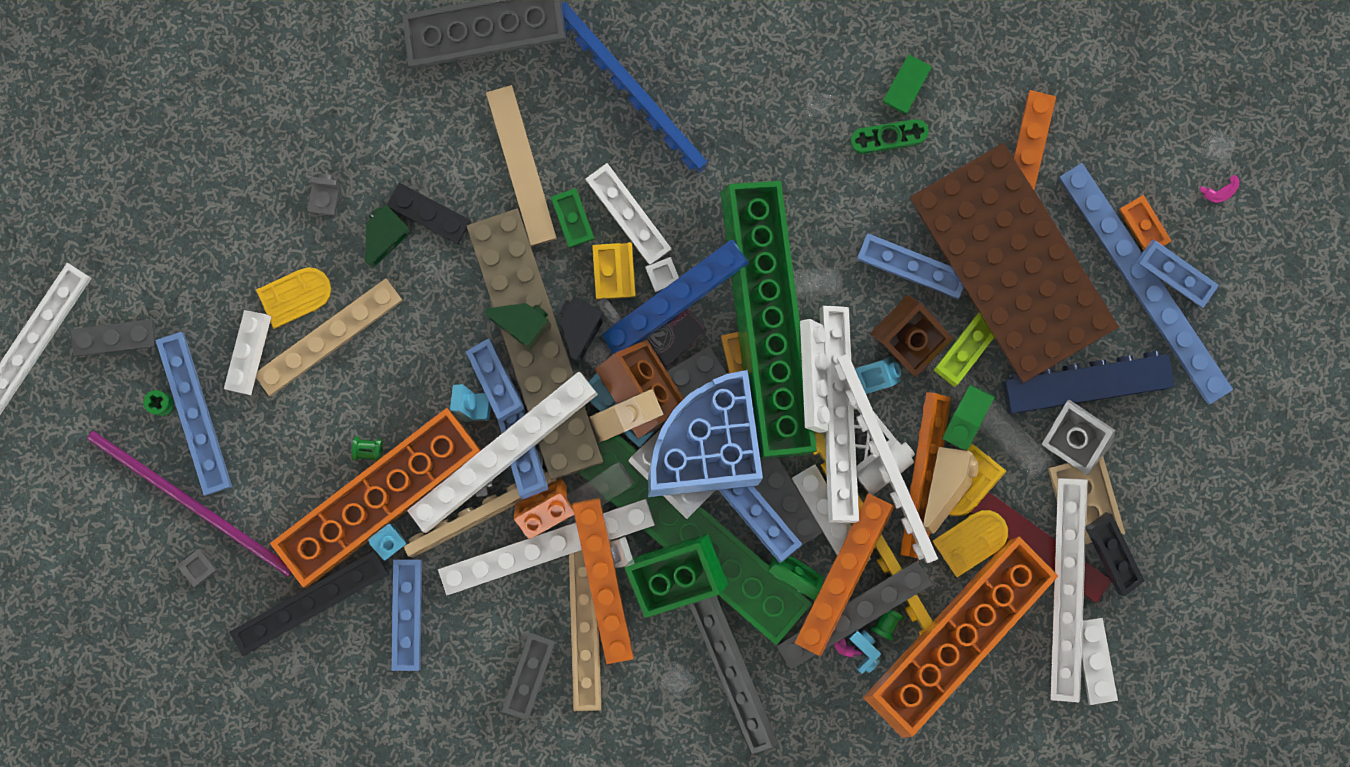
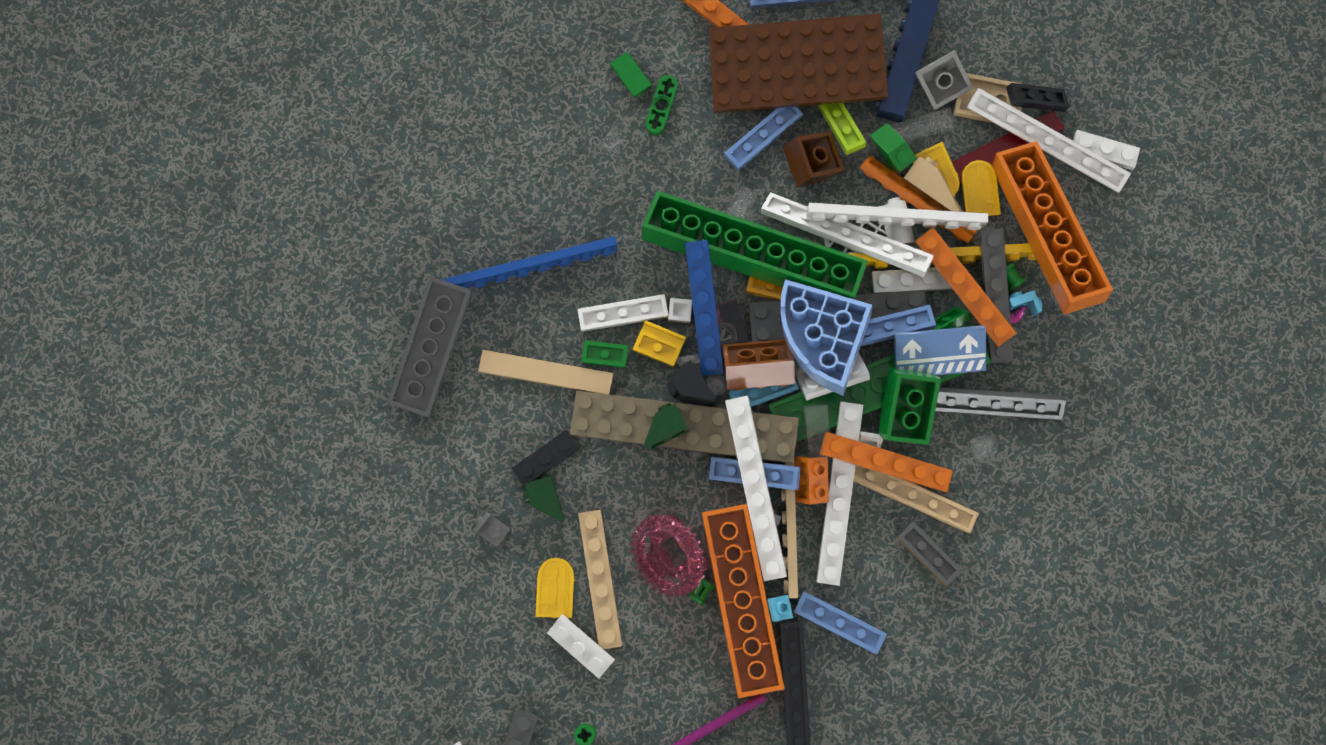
camera: 65 degrees left, 5 degrees down
(193, 413) = (606, 711): medium blue plate -> none
(371, 389) = (657, 564): none -> clear pink piece
(469, 405) = (707, 496): medium azure bracket -> none
(495, 380) = (697, 468): medium blue plate -> none
(625, 415) = (775, 383): tan slope -> none
(757, 582) = (942, 350): none -> medium blue tile
(814, 376) = (818, 238): white plate -> none
(879, 375) = (830, 192): medium azure bracket -> none

